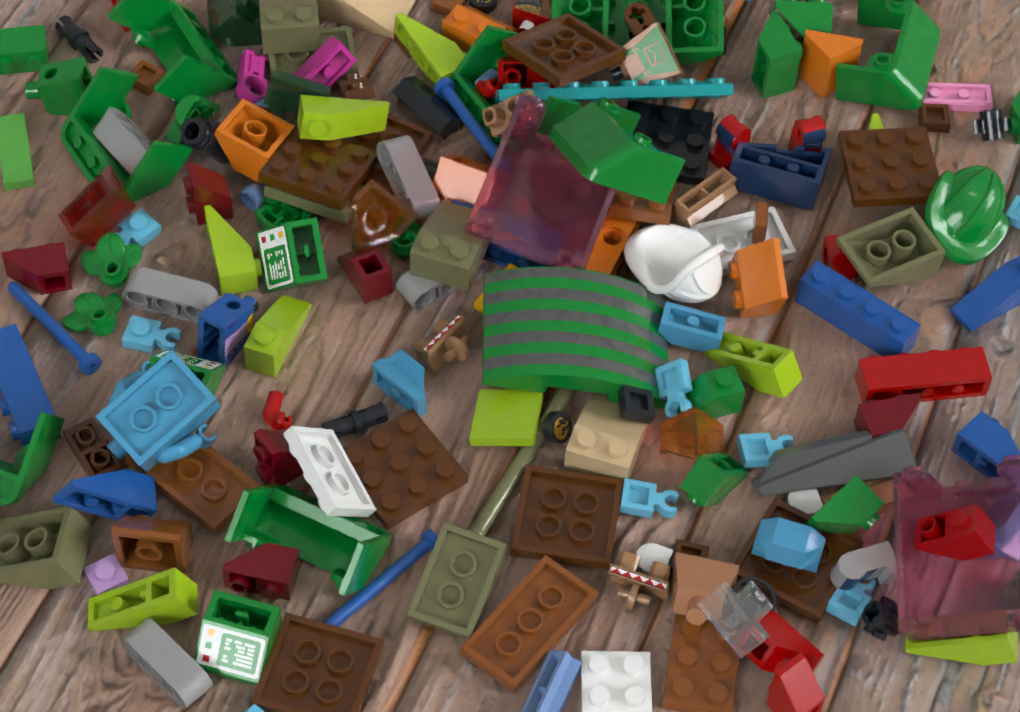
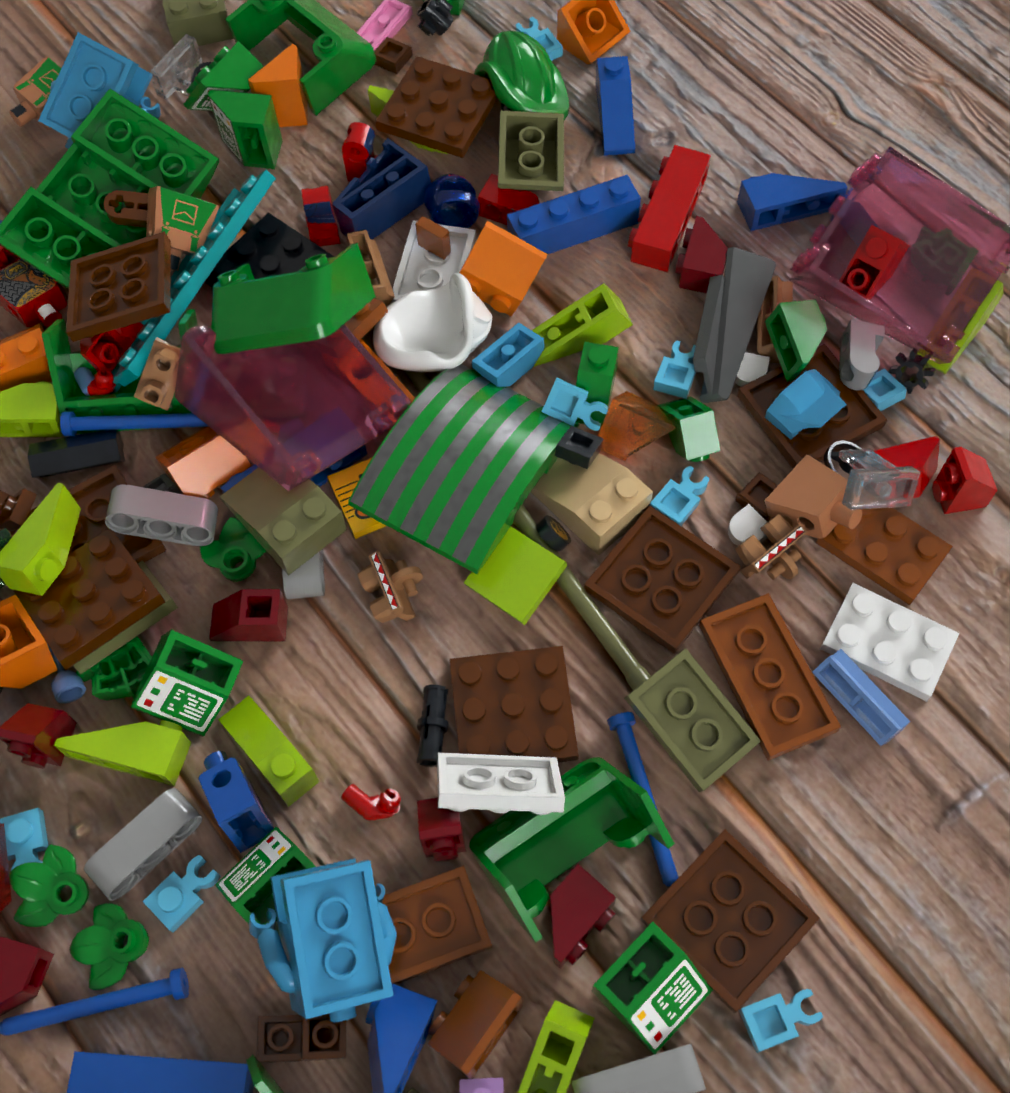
camera: 55 degrees left, 10 degrees up
(378, 216) = (192, 570): clear orange slope -> none
(402, 380) = (416, 650): dark azure slope -> none
(808, 221) = (452, 201): none -> clear blue helmet

